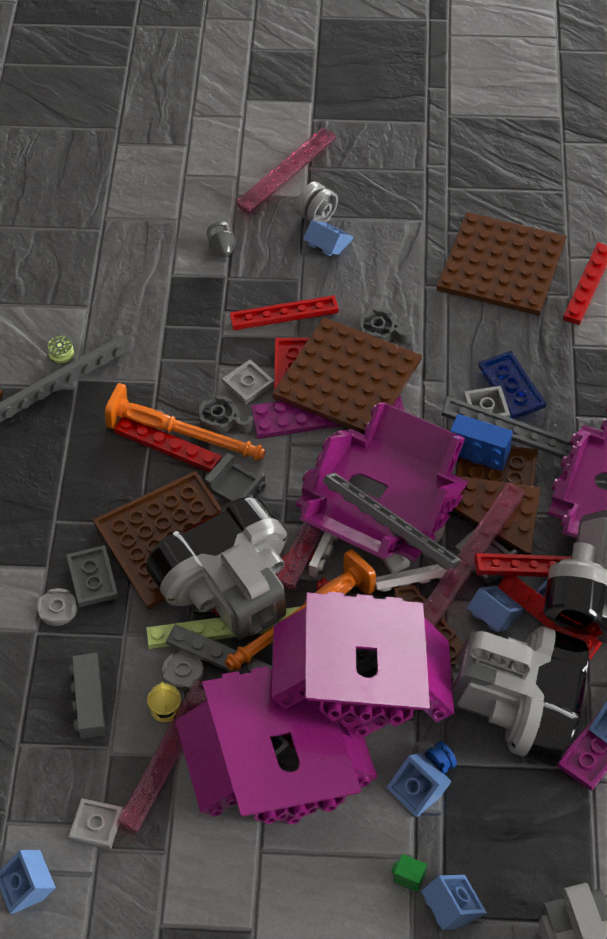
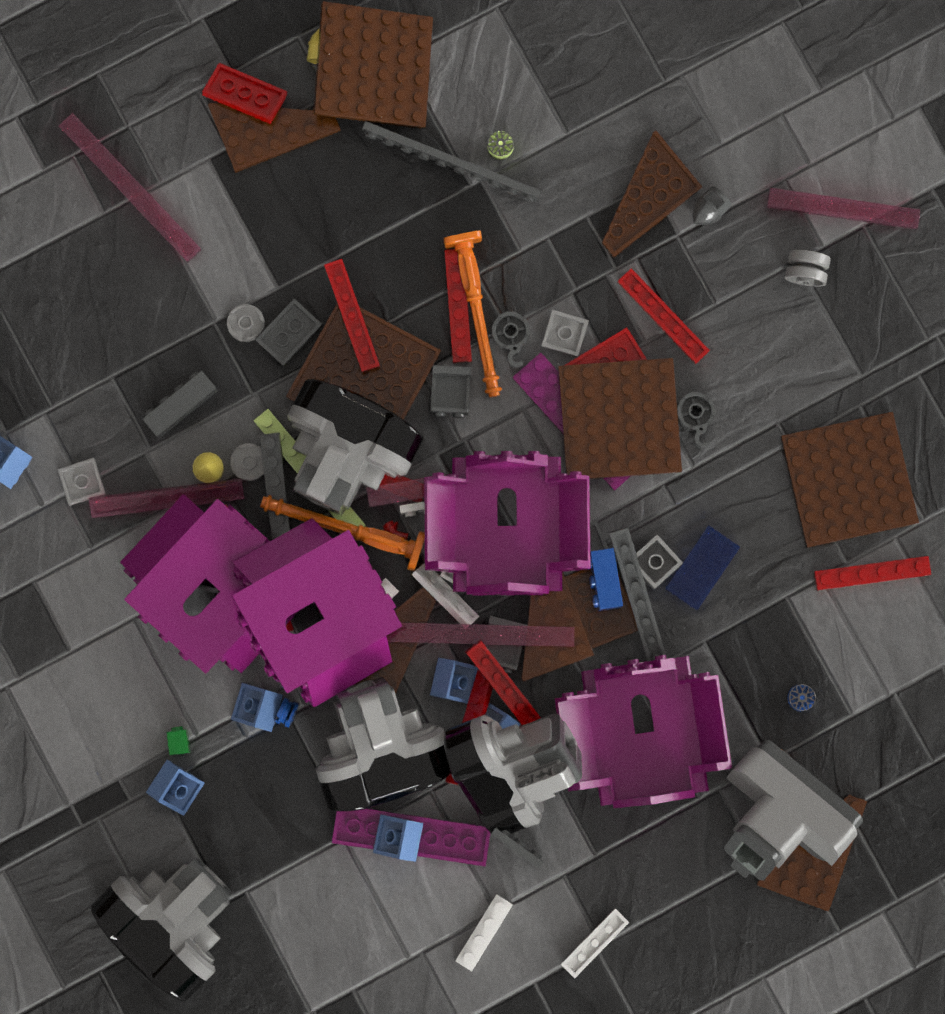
camera: 55 degrees right, 30 degrees up
(116, 515) = (352, 315): none -> red plate
(181, 274) = (654, 192): none -> reddish brown wing
(327, 237) = (779, 301): medium blue slope -> none
(392, 521) = (467, 554): dark grey plate -> none

